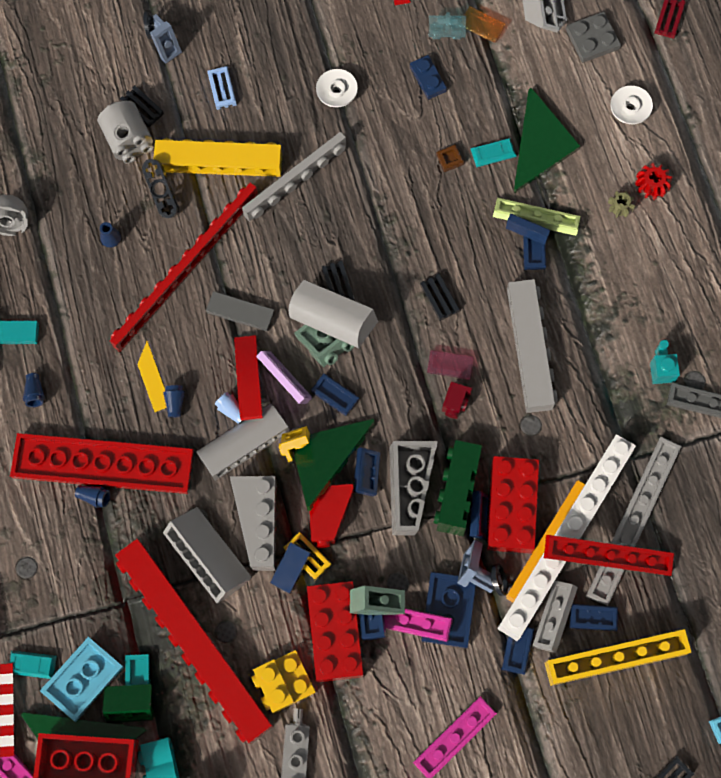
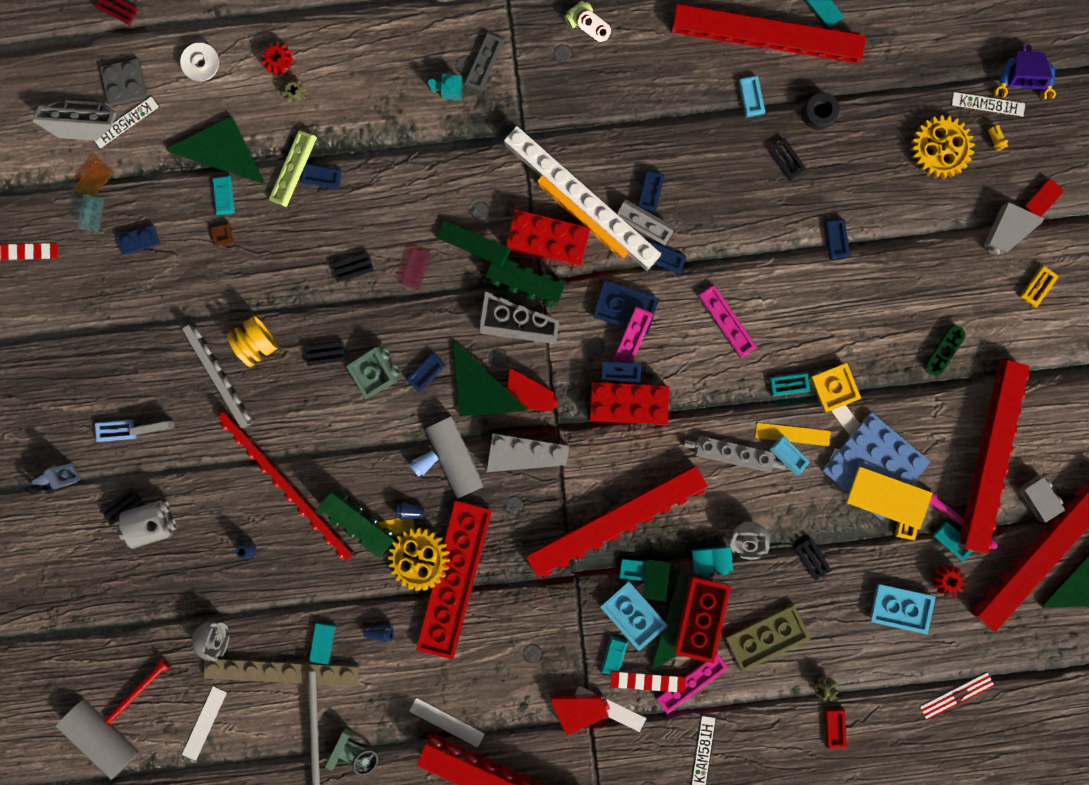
camera: 85 degrees left, 15 degrees up
(94, 495) = (481, 589): dark blue cone -> none
(139, 421) = (414, 575): none -> yellow gear
(153, 345) = (357, 523): none -> dark green wedge
(160, 172) = (222, 491): black beam -> none
(206, 554) = (547, 500): light grey brick -> none
(219, 157) = (186, 443): yellow brick -> none
(229, 120) = (151, 427): none -> light grey tile
(240, 311) = (336, 443): dark grey tile -> none
(248, 378) = (399, 444): red slope -> none
(283, 682) = (661, 452): yellow plate -> none
(284, 377) = (404, 413): lavender tile -> none
(290, 567) = (570, 432): dark blue tile -> none
(293, 439) = (462, 413): yellow bracket -> none
(321, 570) = (548, 426): yellow tile -> none
(332, 313) = (356, 363): light grey brick -> none
(336, 80) = (127, 321): white dish -> none
(338, 203) = (249, 343): none -> yellow wheel
(367, 472) = (499, 356): dark blue plate -> none
(377, 601) = (613, 364): sand green slope -> none
(455, 399) = (449, 270): dark red brick -> none
(473, 573) = (600, 282): sand blue piece -> none
(479, 515) = (552, 268): dark blue tile -> none
(490, 421) = (473, 243): none -> dark green tile
(527, 229) = (305, 178): dark blue tile -> none
(531, 347) = (411, 196): light grey brick -> none
(552, 47) = (127, 121): none -> sticker
(608, 555) = (605, 168): red plate -> none
(617, 657) = (687, 178): yellow brick -> none
(635, 516) = (576, 141): light grey tile -> none

